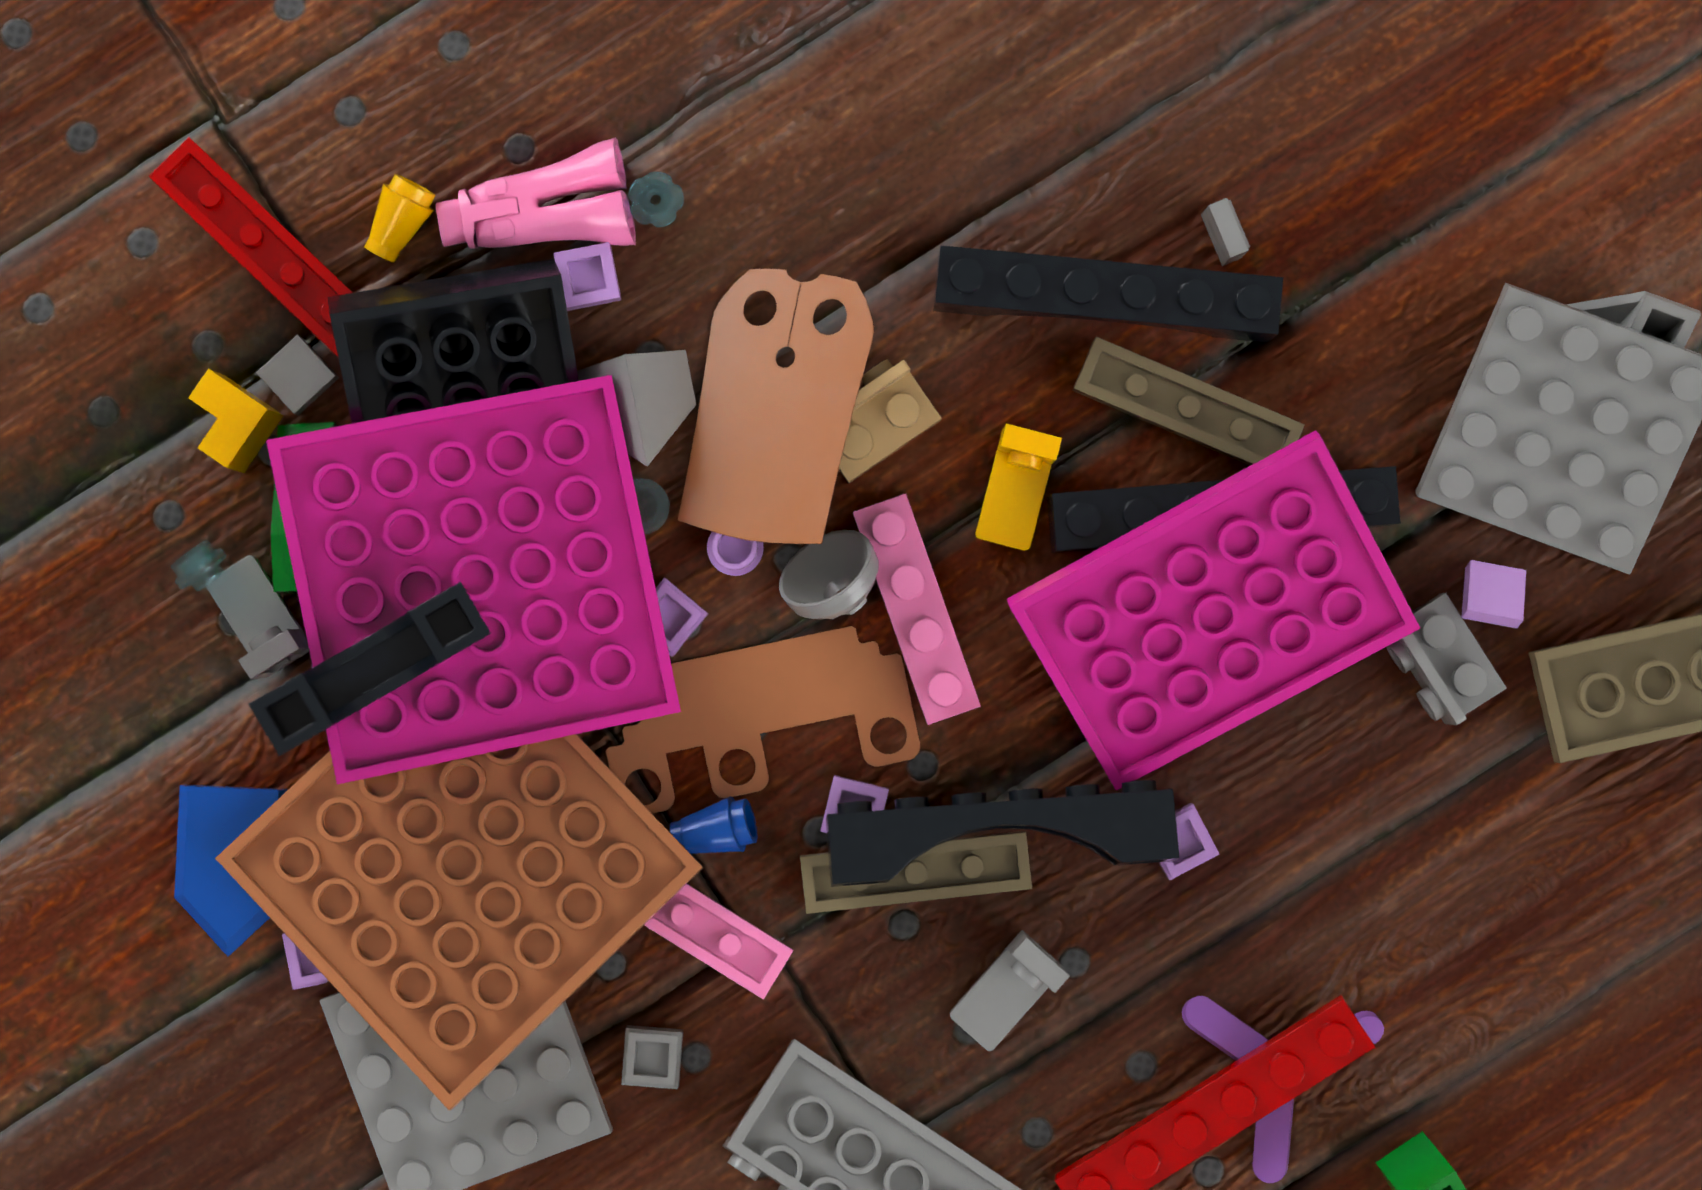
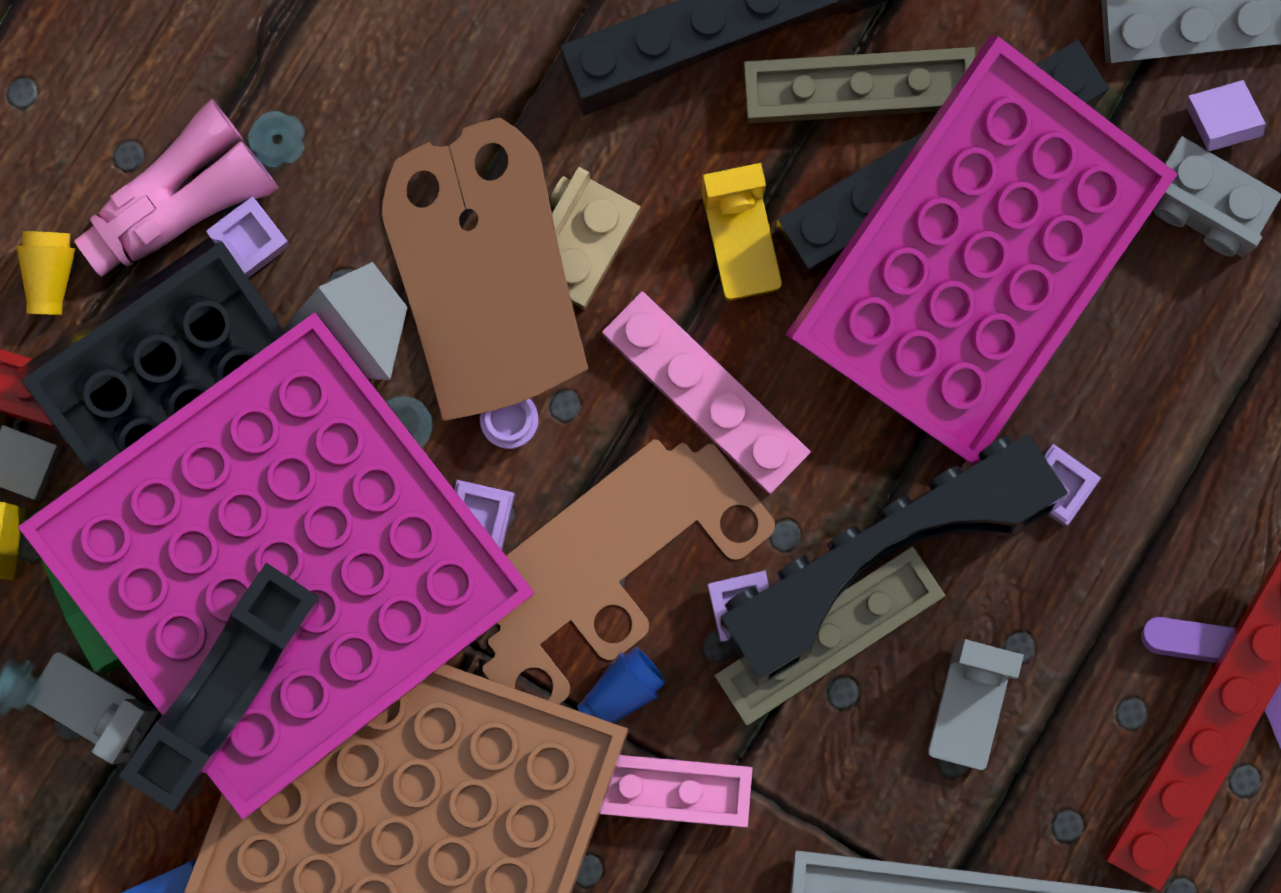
camera: 30 degrees left, 5 degrees down
(823, 569) = (611, 399): light grey piece -> none

